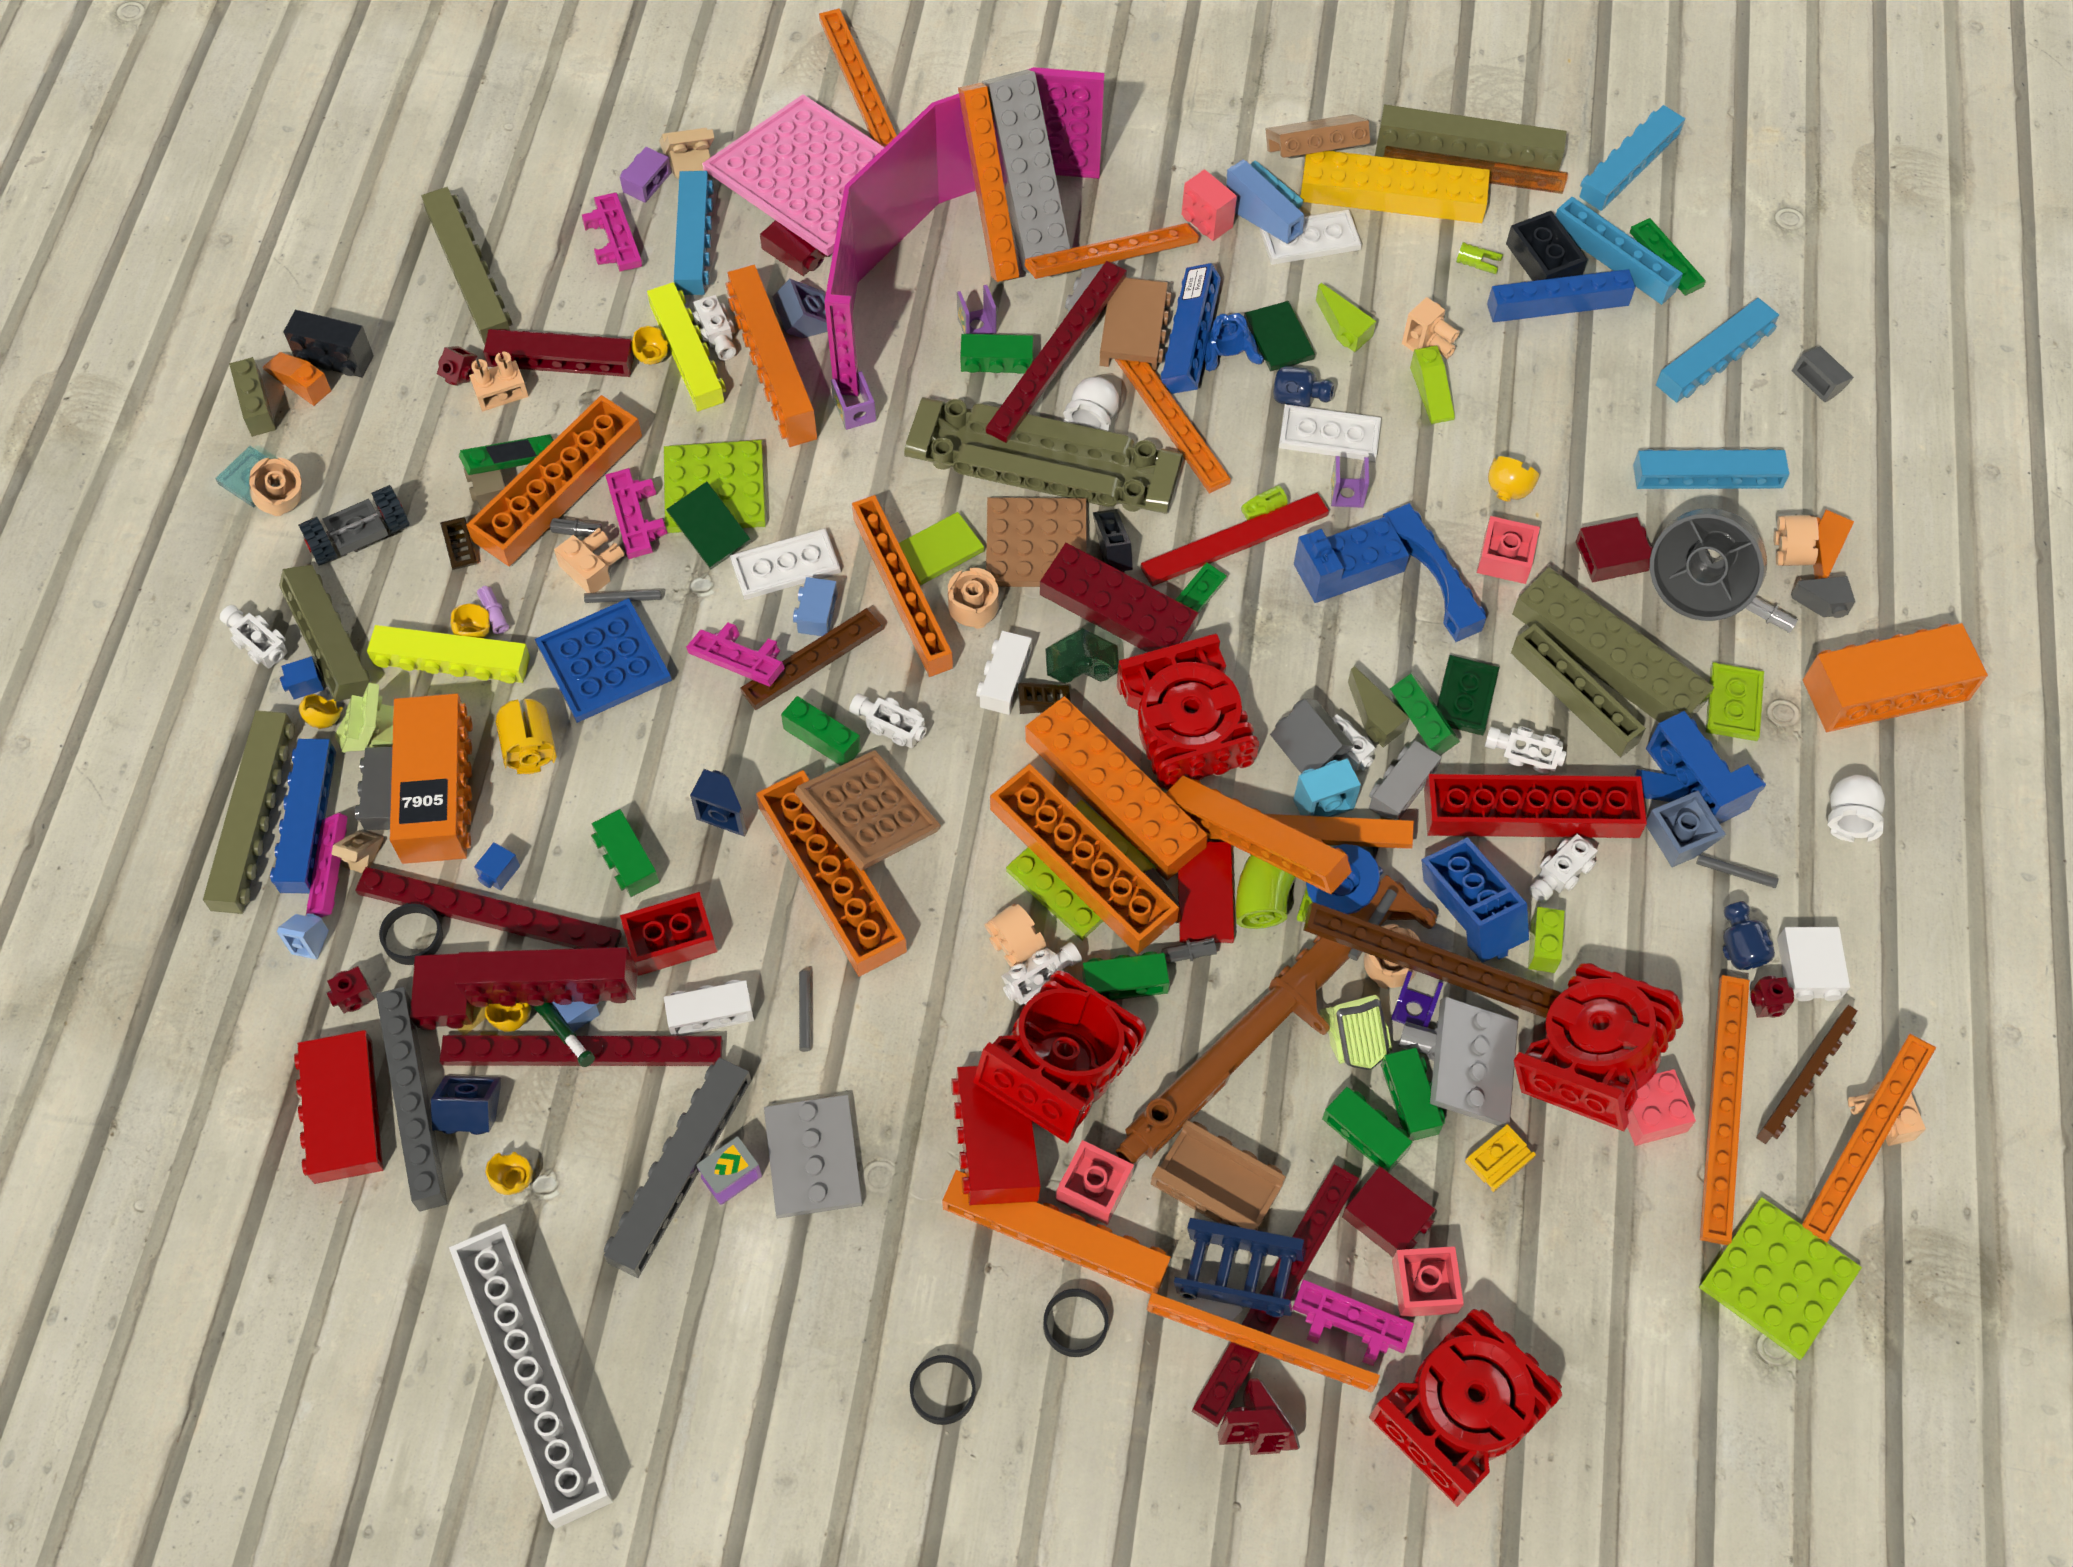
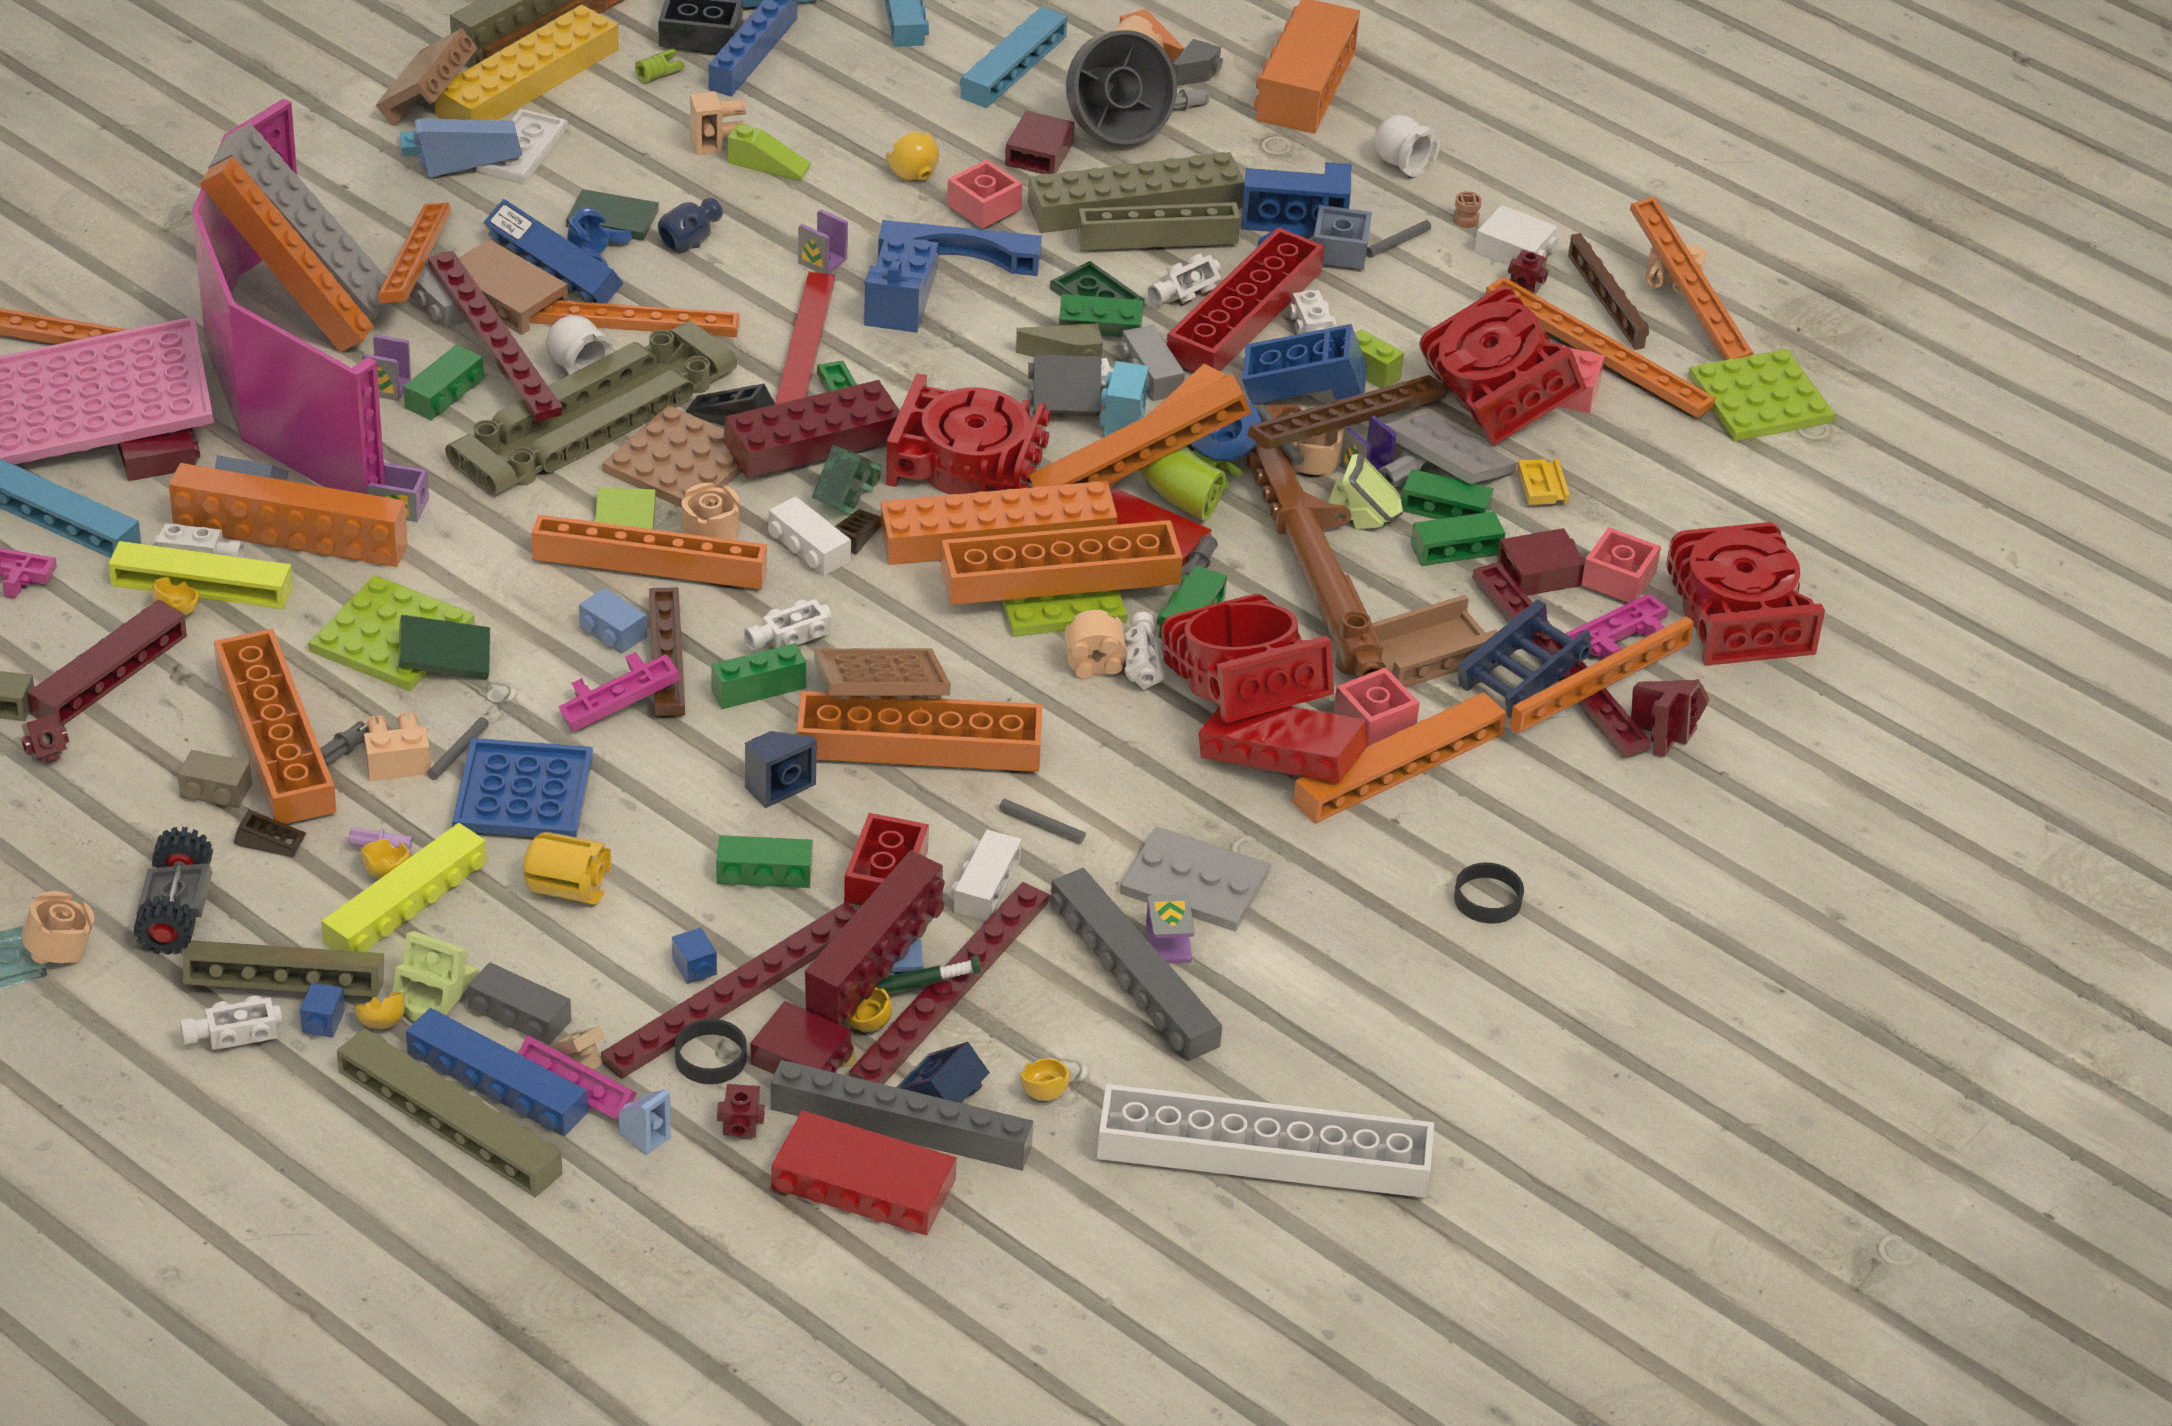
camera: 60 degrees left, 20 degrees down
(430, 779) = (557, 946): orange brick -> none
(498, 384) = (100, 719): light nougat brick -> none
(503, 455) = (209, 740): green plate -> none
(634, 529) = (361, 698): dark pink hinge -> none
(784, 564) = (535, 625): white tile -> none
(1075, 1293) = (1490, 807): black tyre -> none
(1208, 205) = (428, 174): coral brick -> none
(1264, 502) = (786, 306): lime hinge -> none
(1330, 432) = (748, 237): white tile -> none
(1346, 321) = (637, 167): lime slope -> none
(1735, 702) = (1245, 153): lime tile -> none
(1747, 939) = (1468, 259): dark blue piece -> none
(1819, 903) = (1467, 208): none -> nougat wheel

